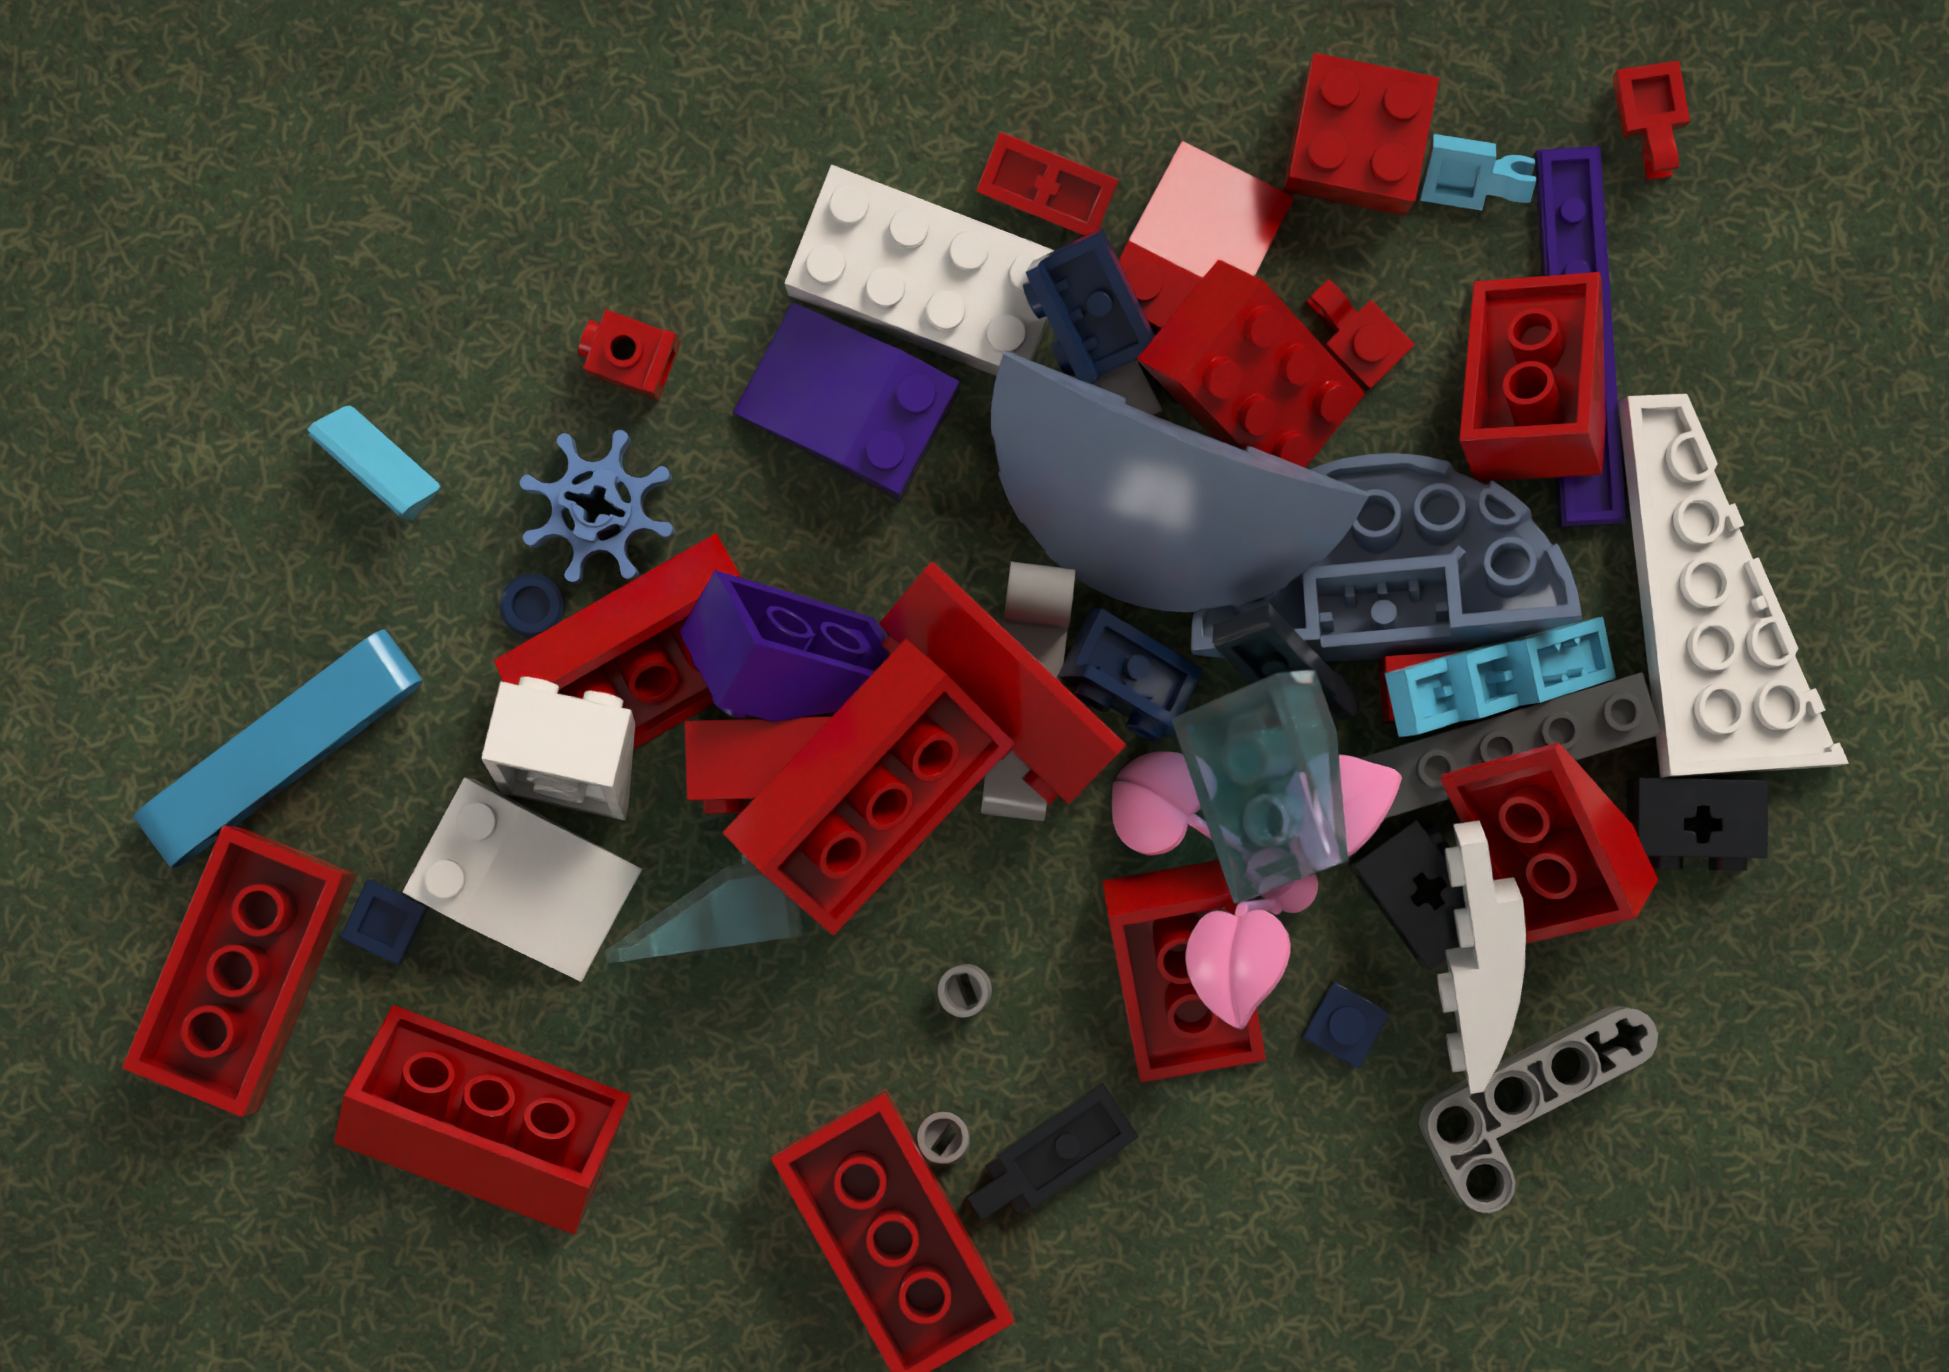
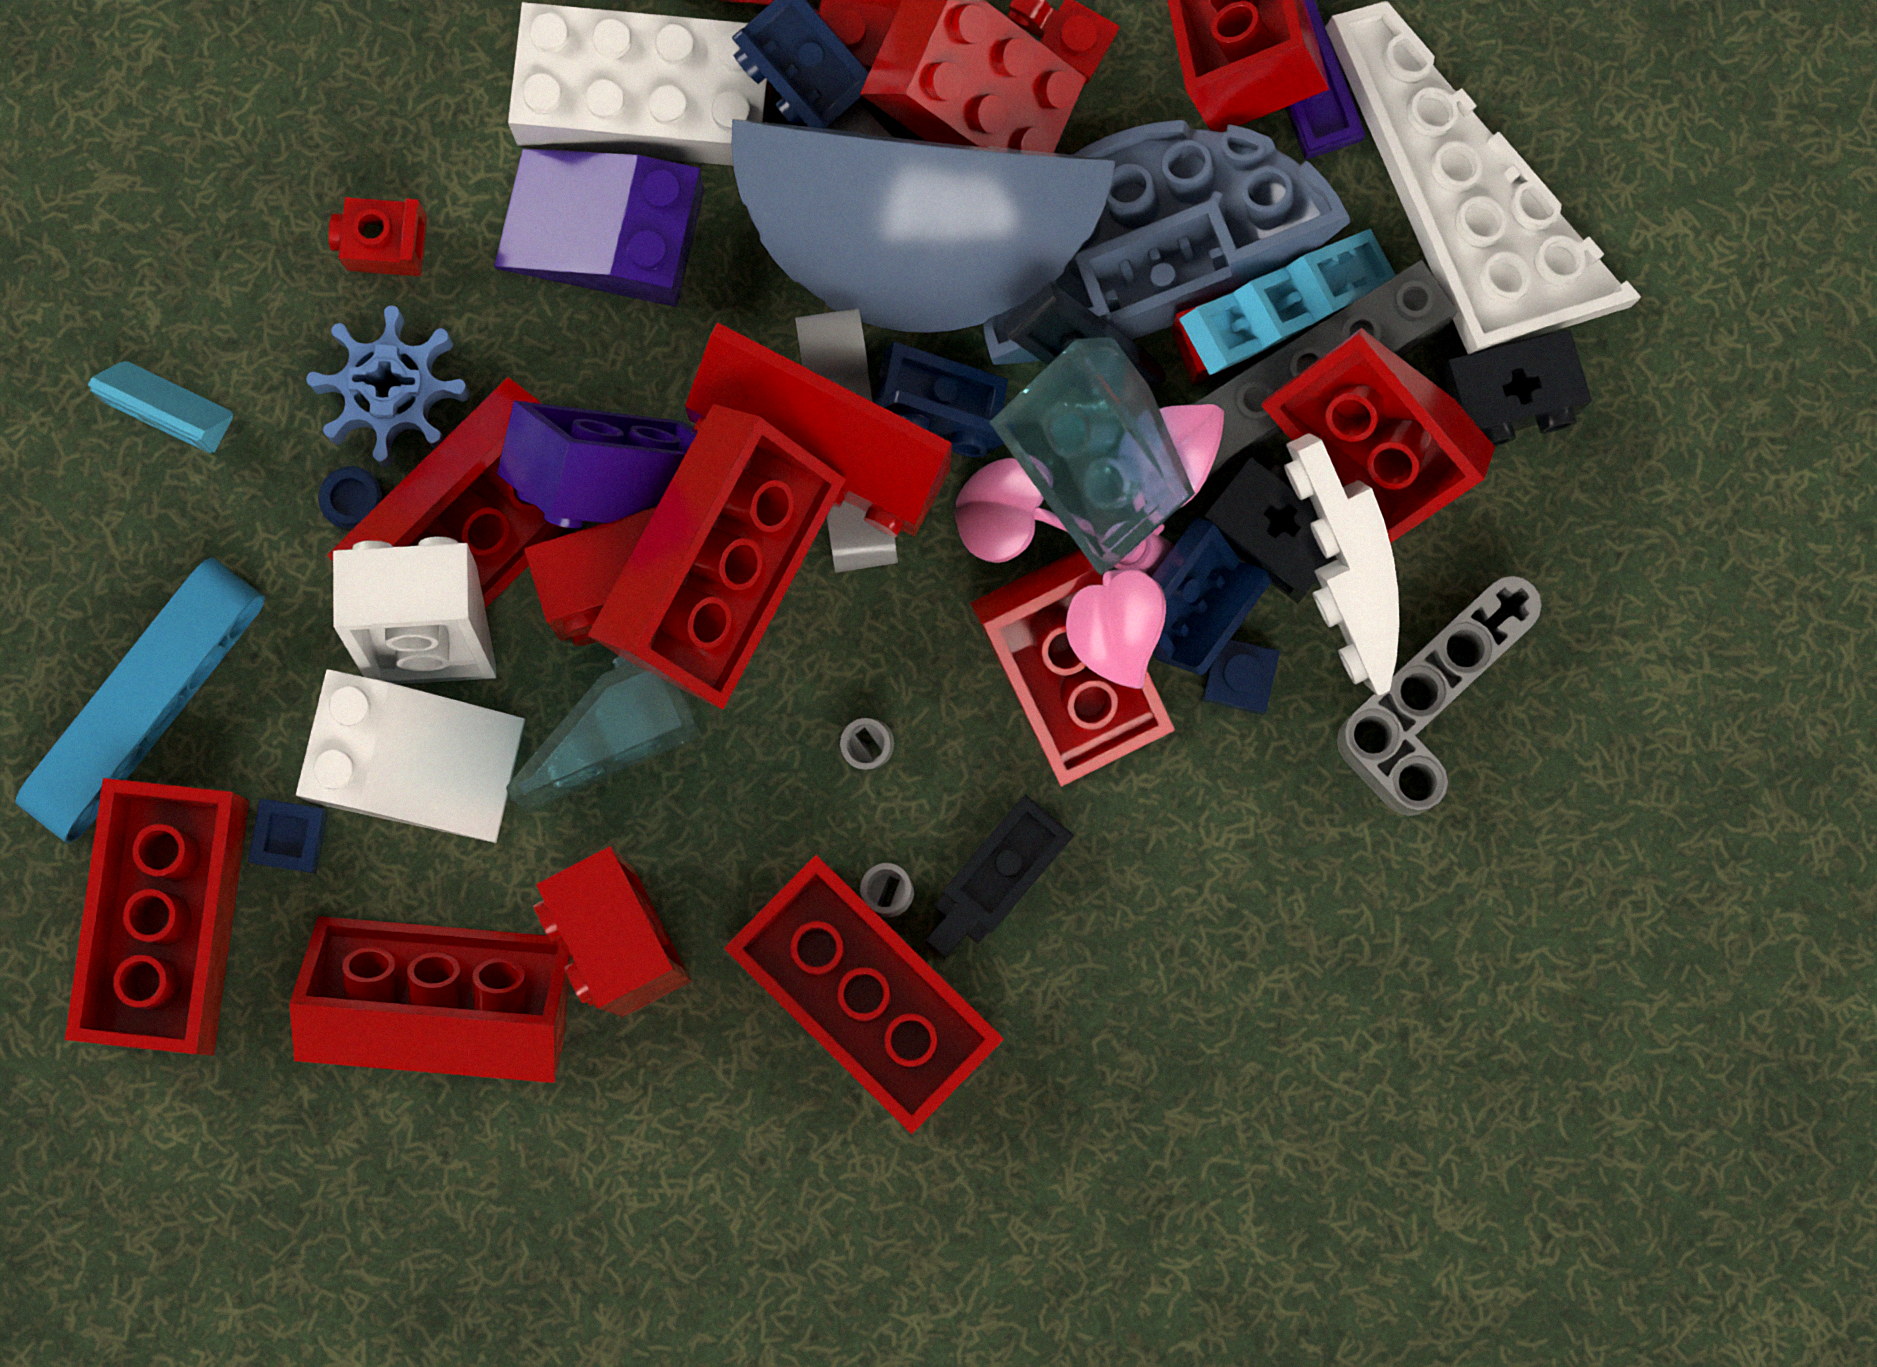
camera: 15 degrees left, 5 degrees down
(667, 1127) = (611, 933): none -> red brick
(1332, 942) = (1205, 597): none -> dark blue bracket

